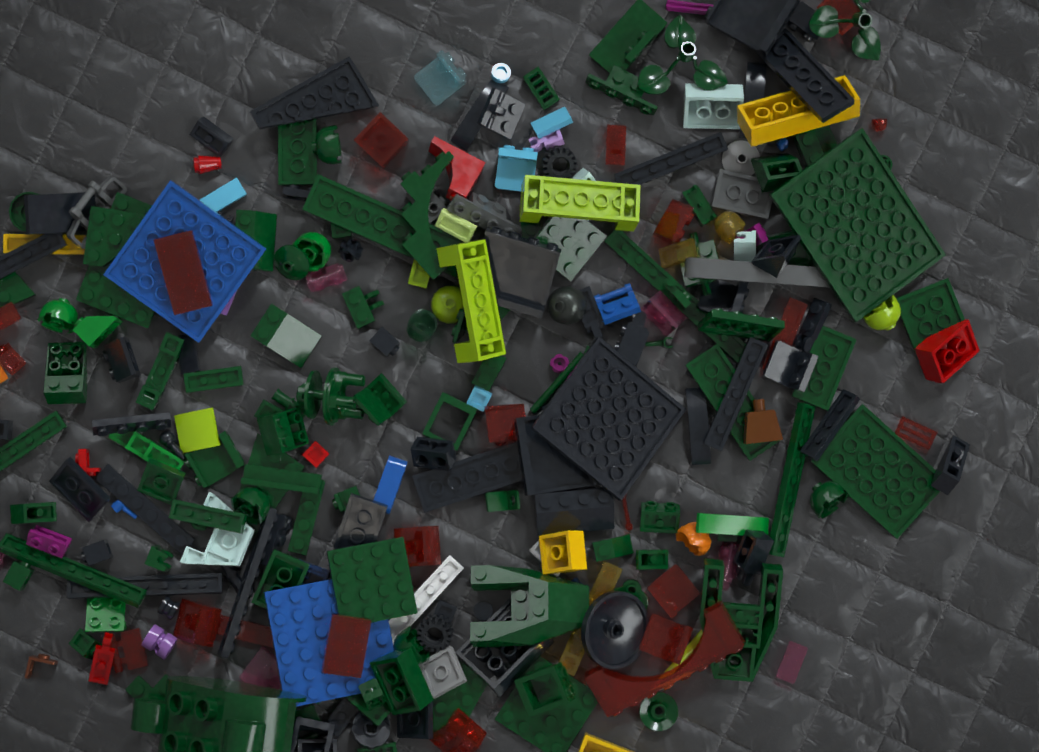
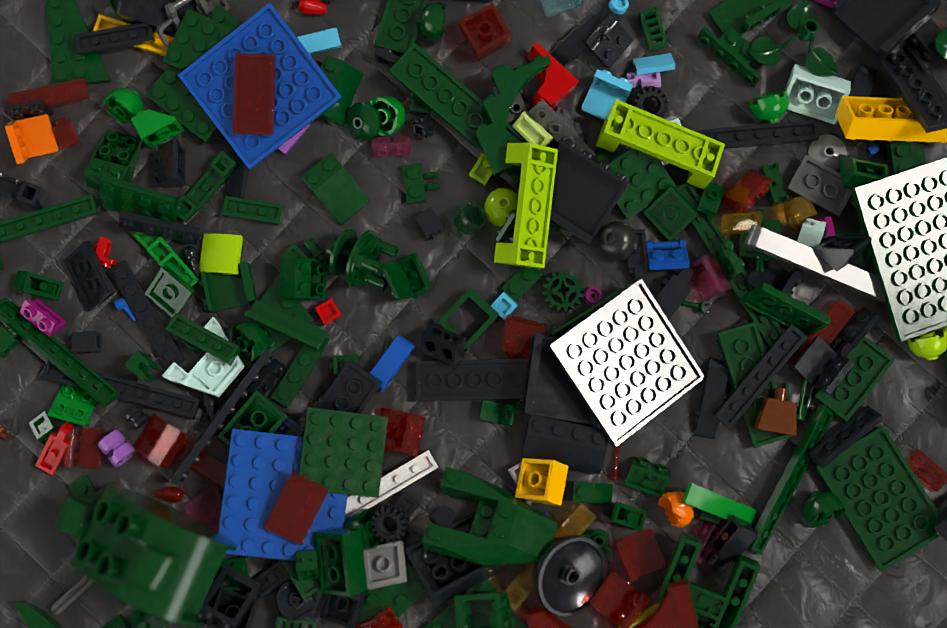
camera: 20 degrees right, 5 degrees down
(101, 404) = (132, 198): none -> dark green plate
(223, 668) = (170, 494): none -> clear red cylinder
(540, 363) = (574, 289): none -> dark green gear
(609, 263) = (671, 213): none -> dark green hinge
(616, 144) = (709, 103): clear red slope -> none
(643, 239) = (711, 199): none -> dark green plate
(672, 131) = (769, 106): none -> green cylinder
(781, 413) = (801, 409): none -> dark green plant

